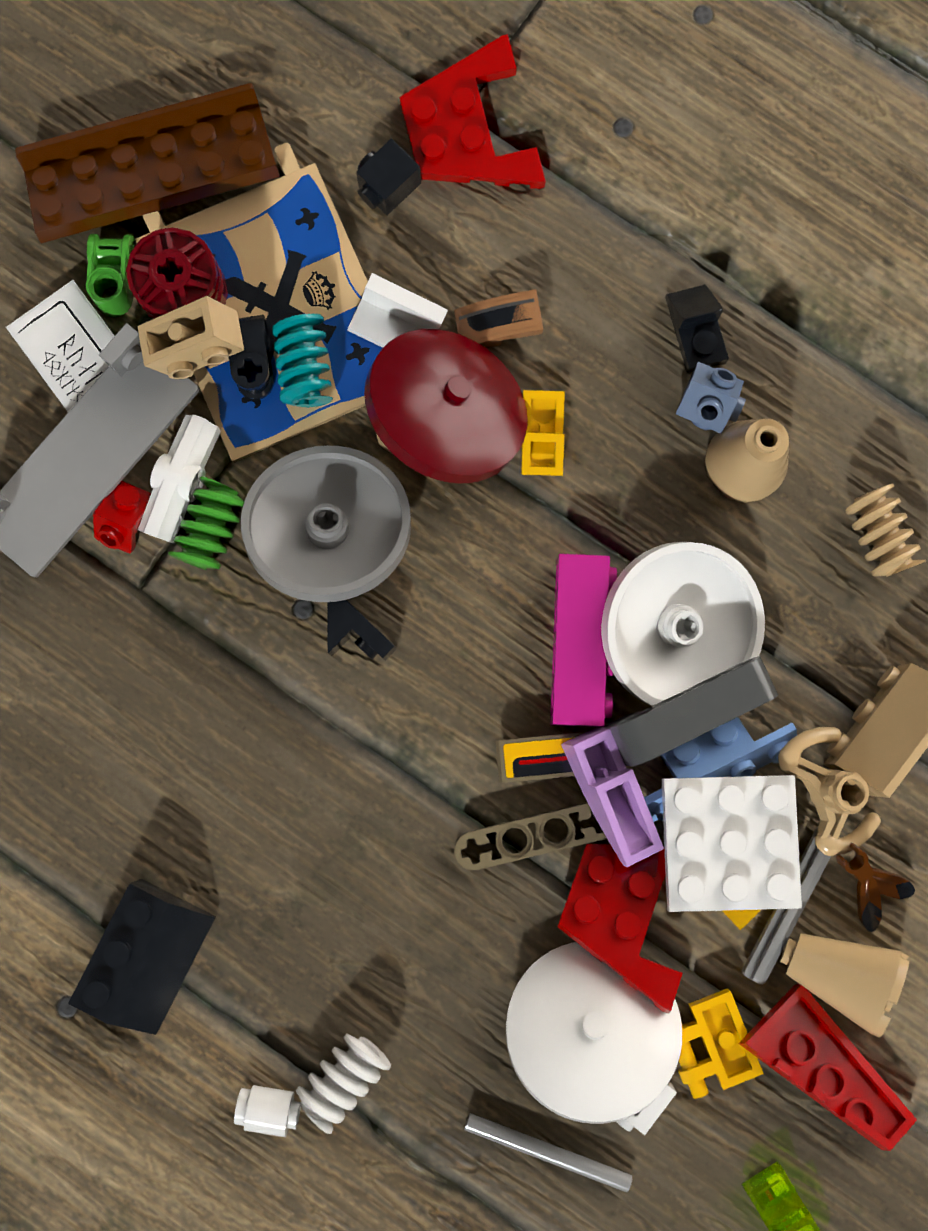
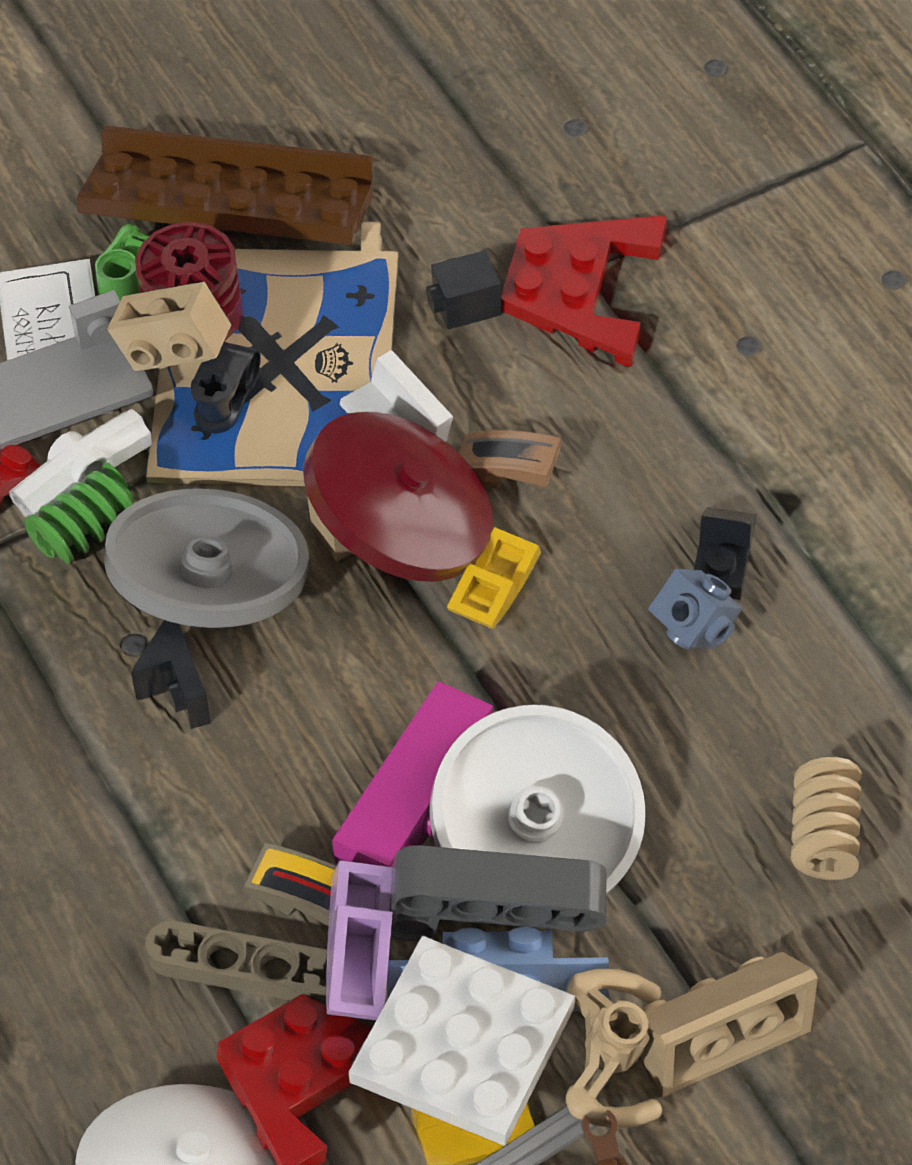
camera: 30 degrees right, 30 degrees down
(299, 361) = (273, 405): teal piece -> none
(748, 459) = (711, 682): tan cone -> none

